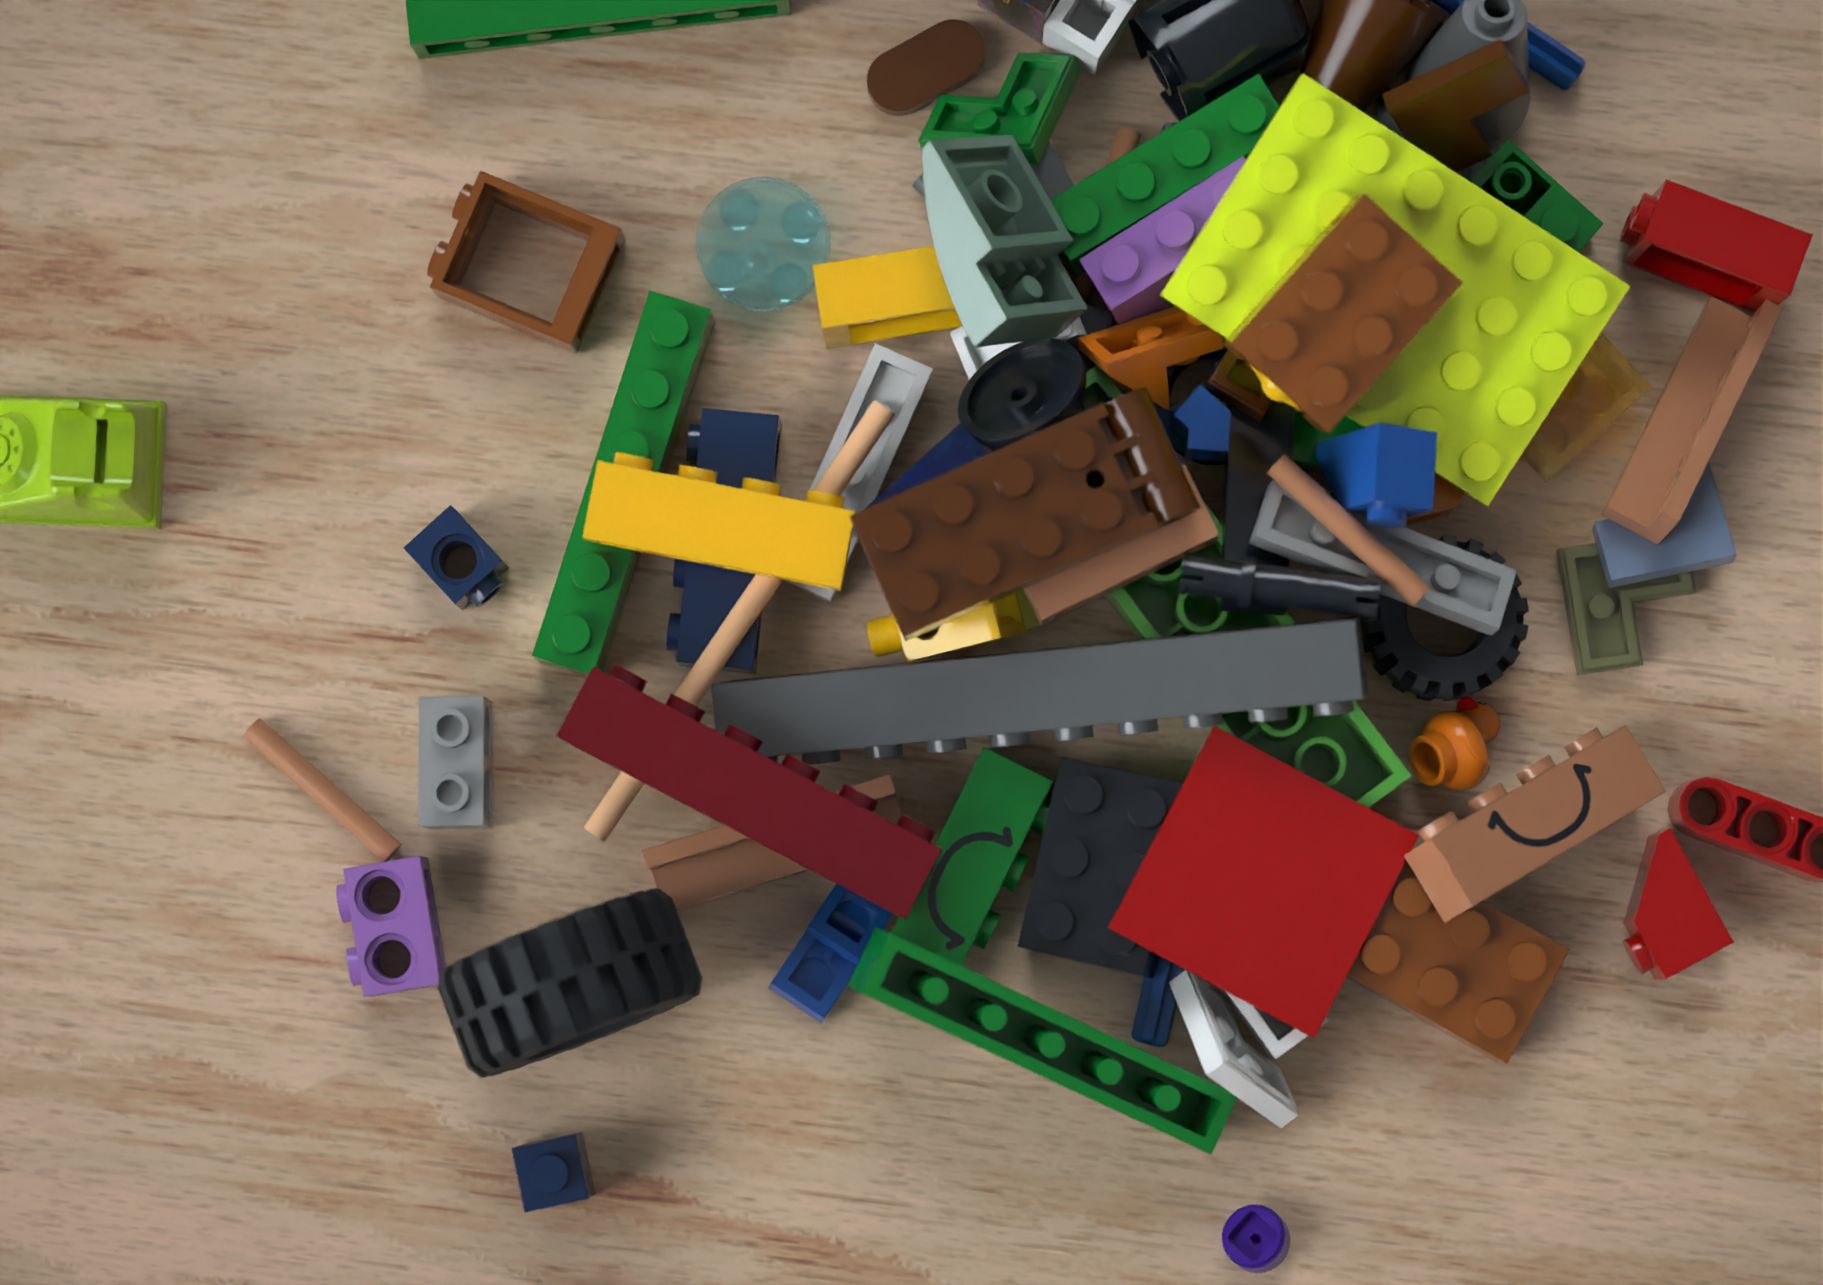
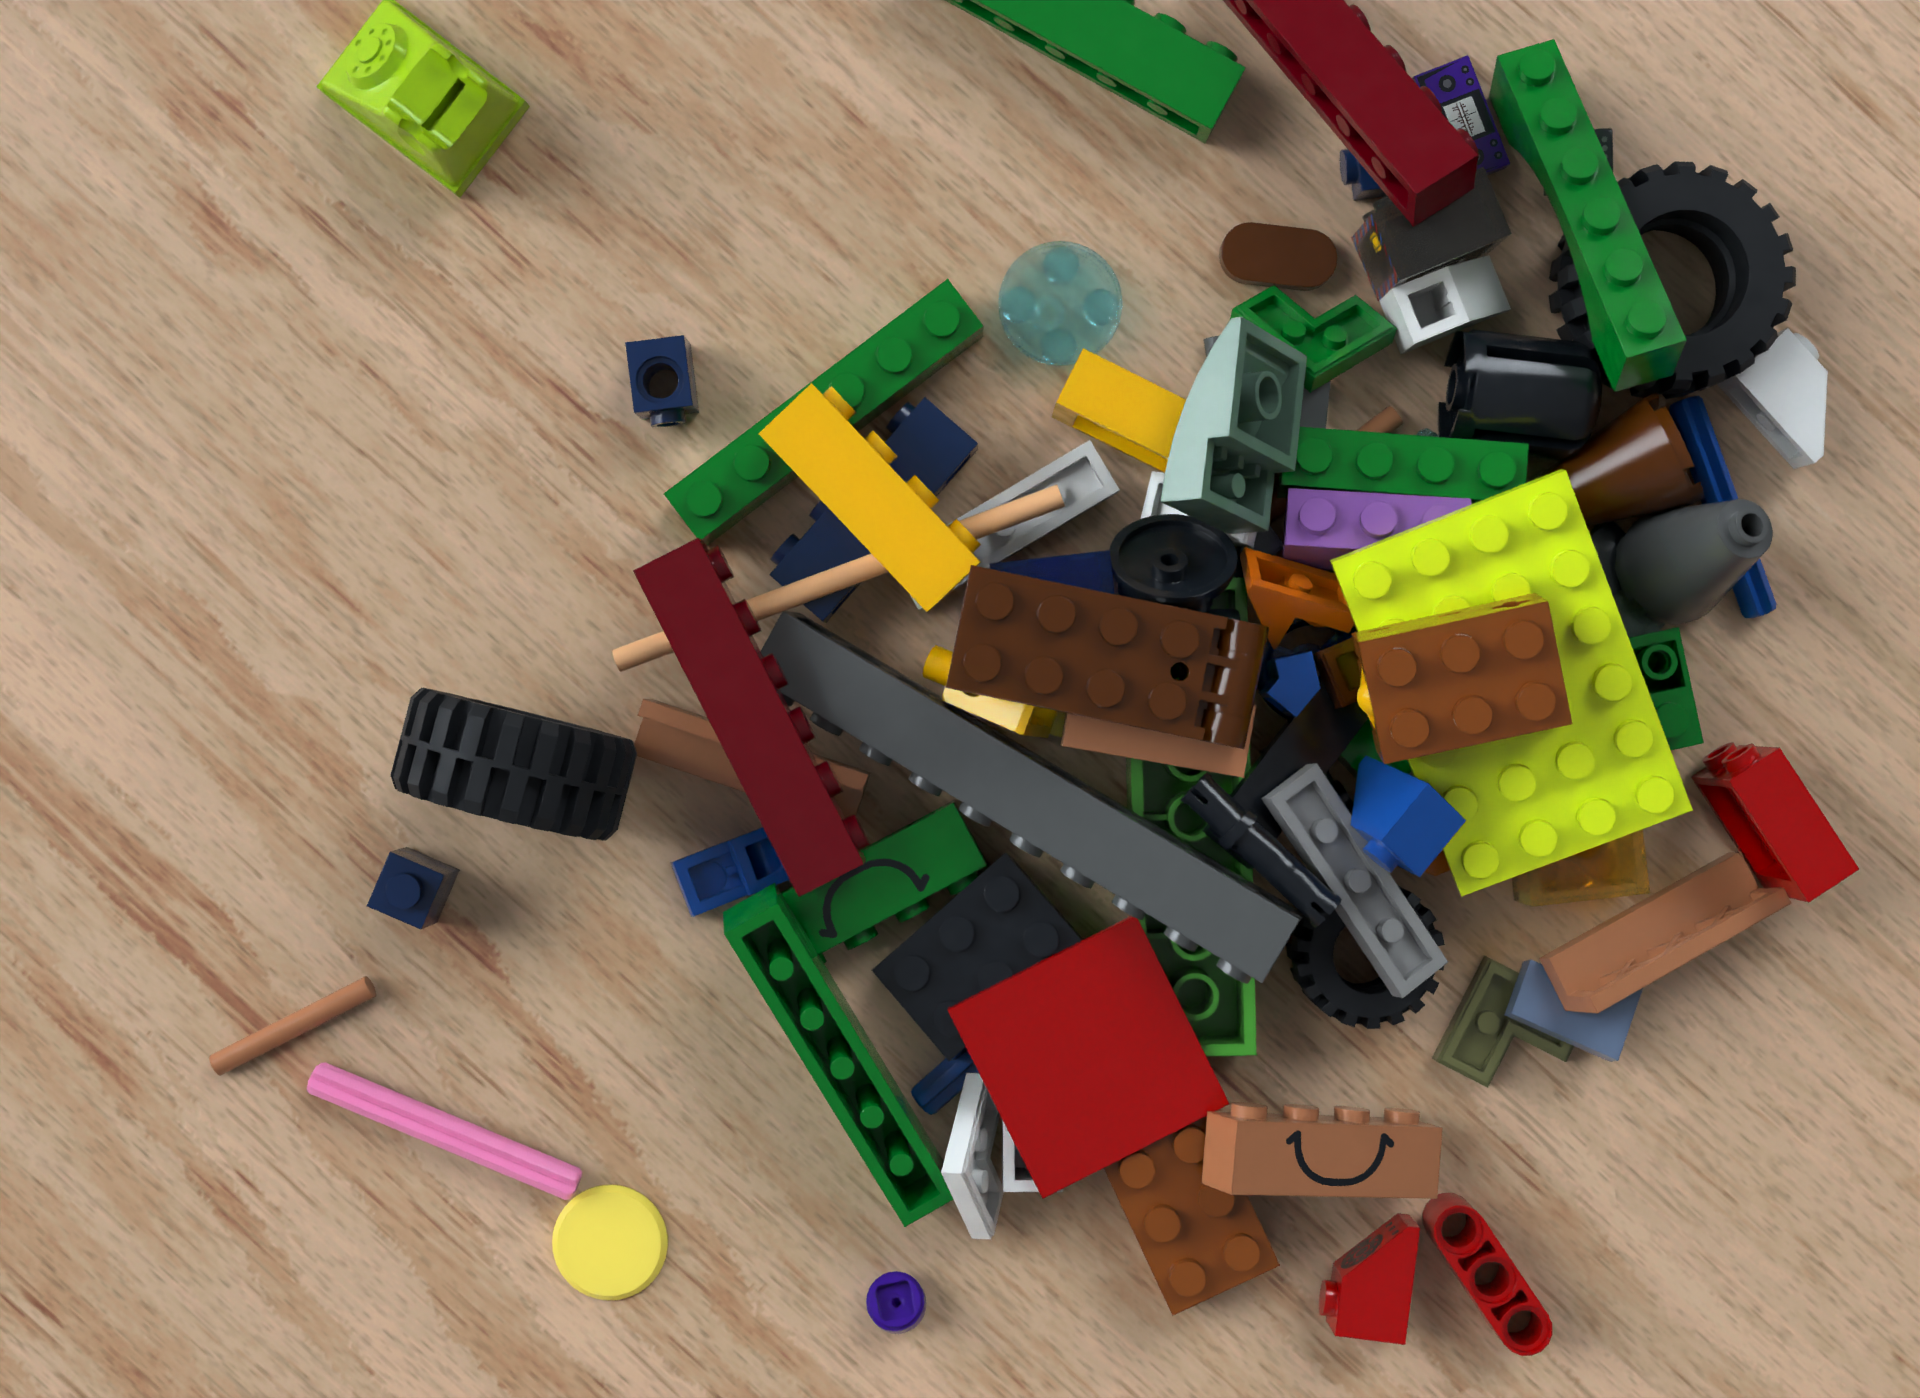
camera: 30 degrees right, 5 degrees up
(322, 790) = (442, 480): nougat bar -> none
(411, 923) = (437, 630): medium lavender brick -> none
(455, 762) = (552, 532): light grey brick -> none
(586, 286) = (907, 239): dark orange window -> none
(1348, 530) = (1344, 844): nougat piece -> none
(1440, 106) = (1649, 567): reddish brown tile -> none
(1454, 746) = (1303, 1048): orange animal -> none

